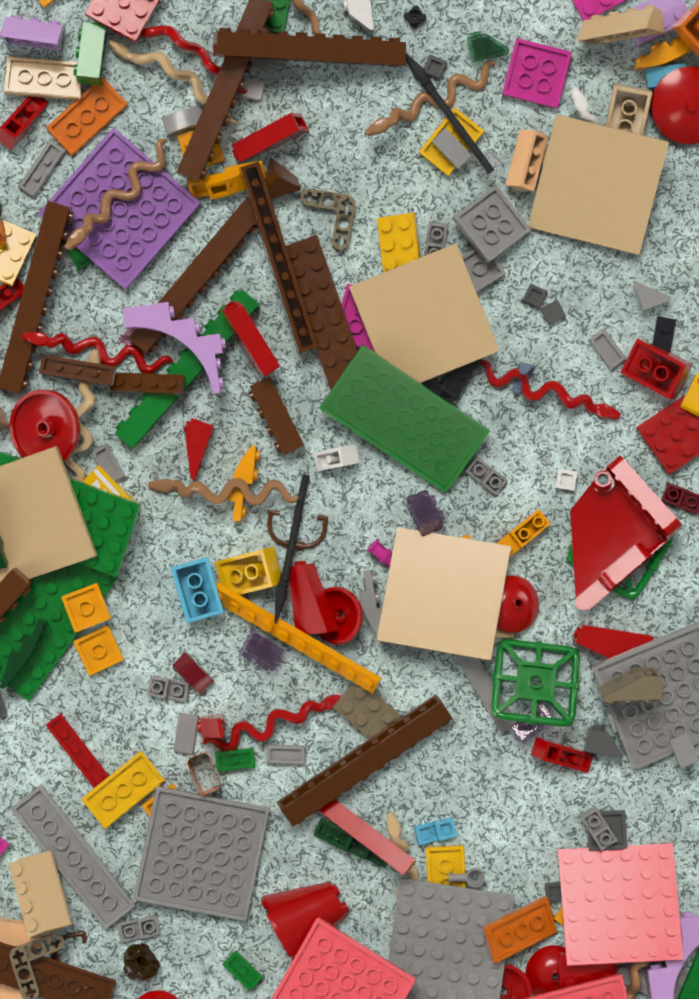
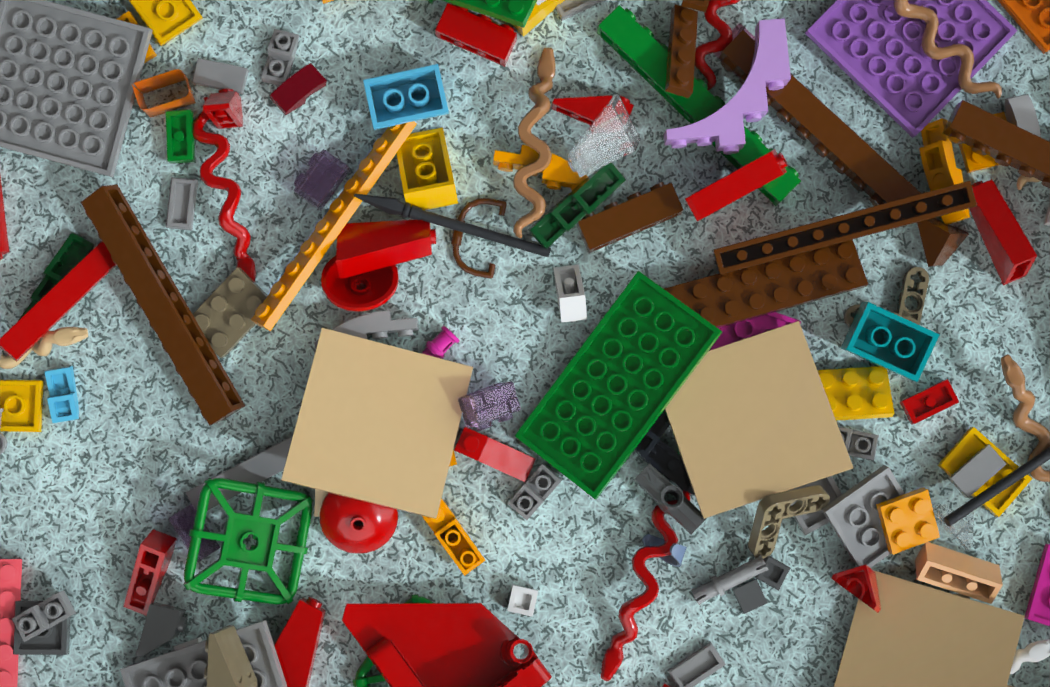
camera: 85 degrees right, 5 degrees down
(142, 540) = (476, 34): none -> red brick
(222, 438) = (605, 139): none -> clear slope
(270, 456) = (576, 205): none -> dark green slope
(360, 218) = (890, 341): none -> teal brick
(401, 184) = (929, 402): none -> red plate
(460, 506) = (494, 454): none -> slope
(477, 384) = (657, 486): none -> dark grey piece
(486, 296) = (777, 507): none -> dark tan beam
(491, 199) = (908, 520): none -> light orange plate
(539, 231) = (861, 583): none -> red slope
(545, 334) = (720, 584): none -> light grey pin

